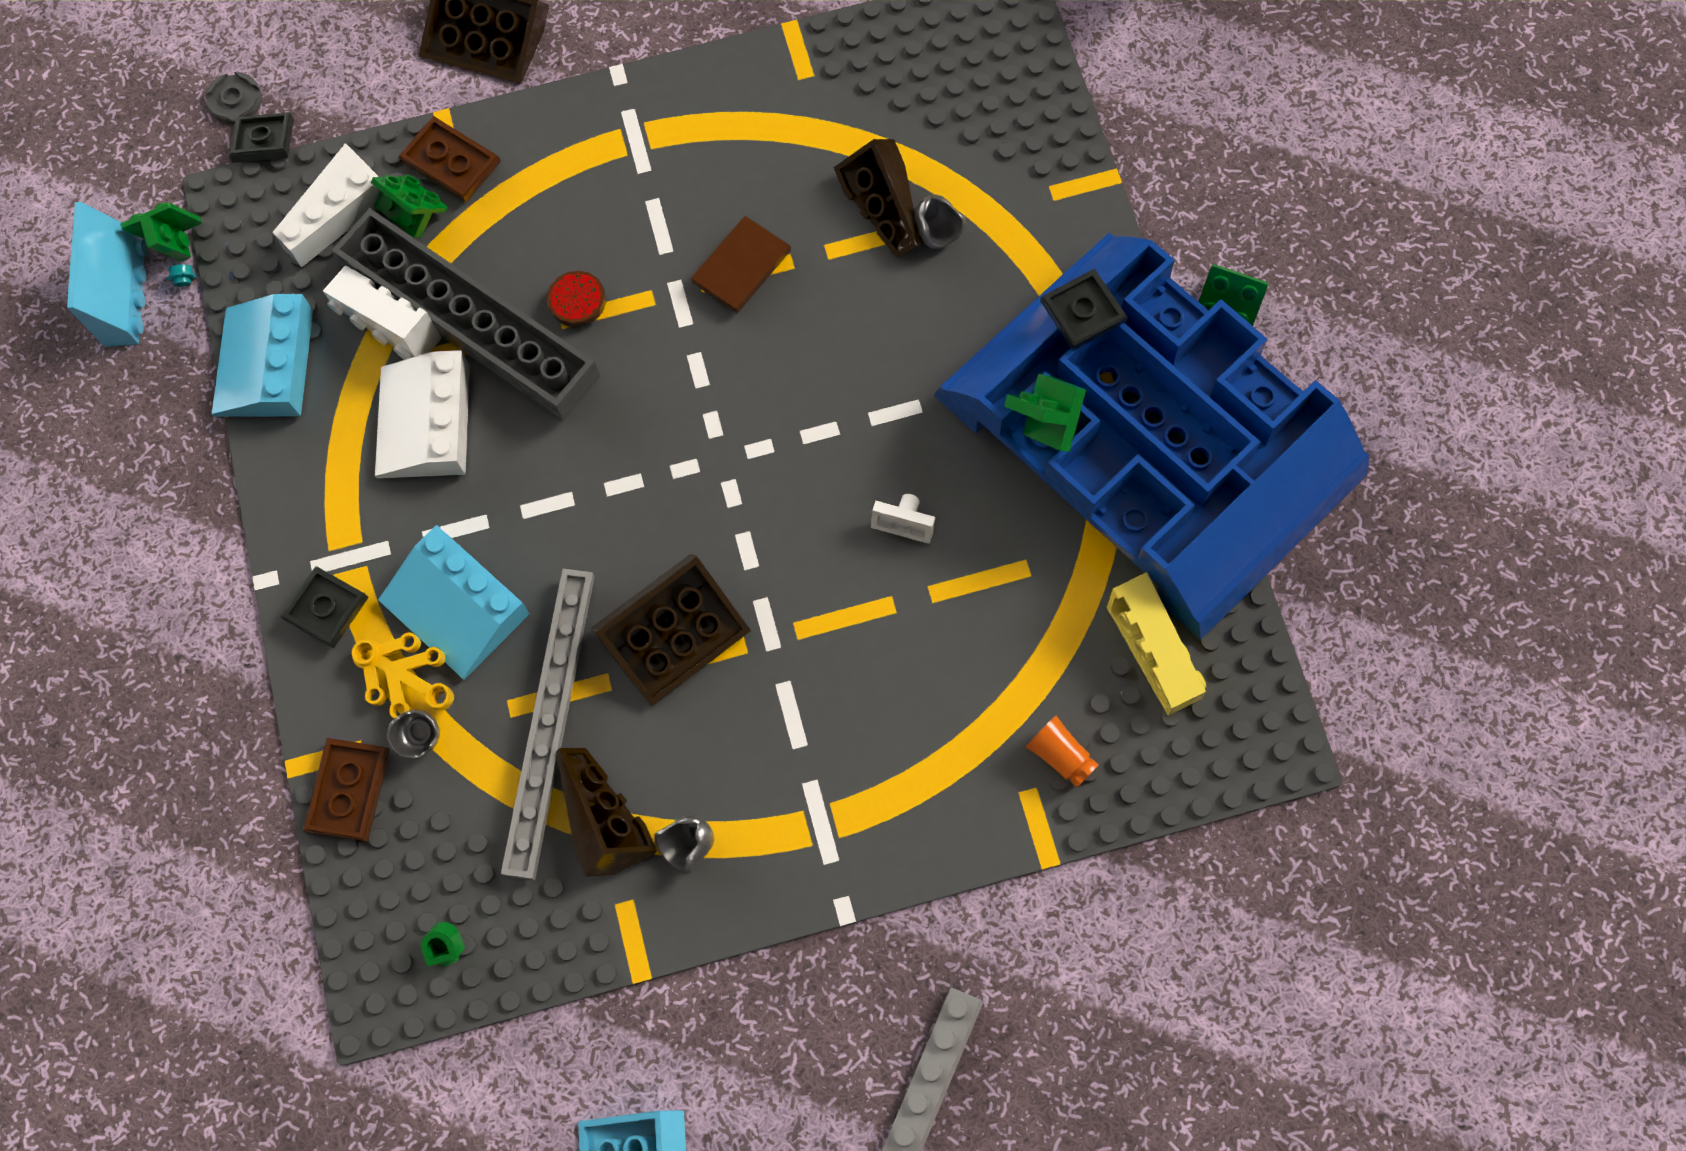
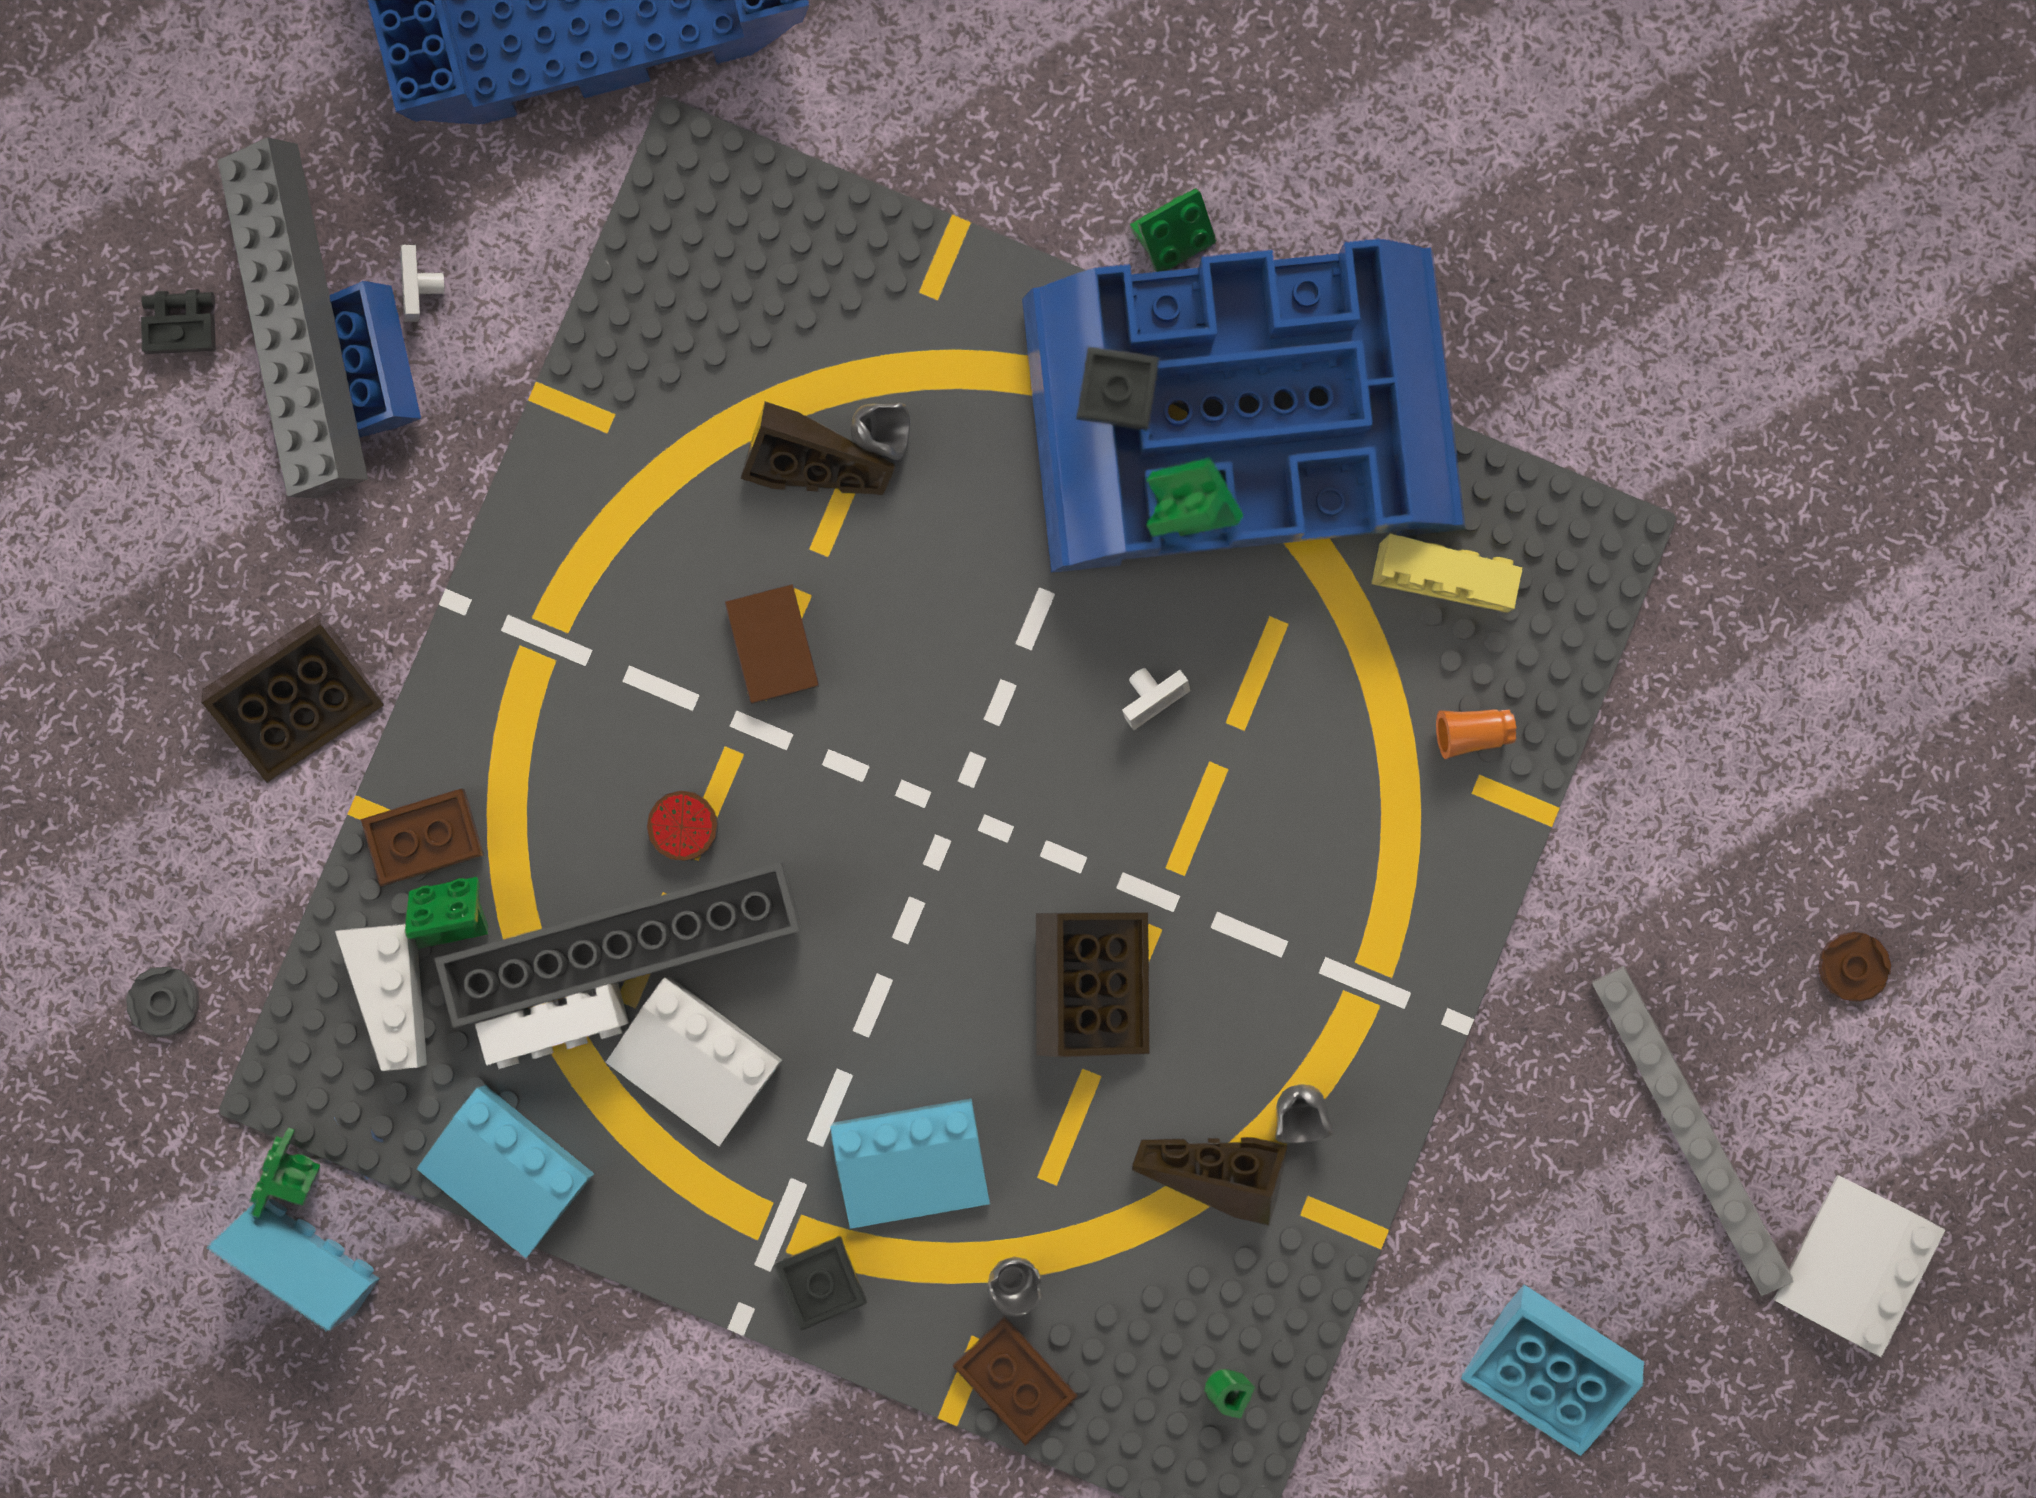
camera: 65 degrees left, 15 degrees up
(181, 275) = (338, 1188): teal plate -> none
(261, 137) = (239, 1005): pearl dark grey plate -> none
(399, 672) = (941, 1259): yellow plant -> none
(548, 725) = (1094, 1155): light grey plate -> none

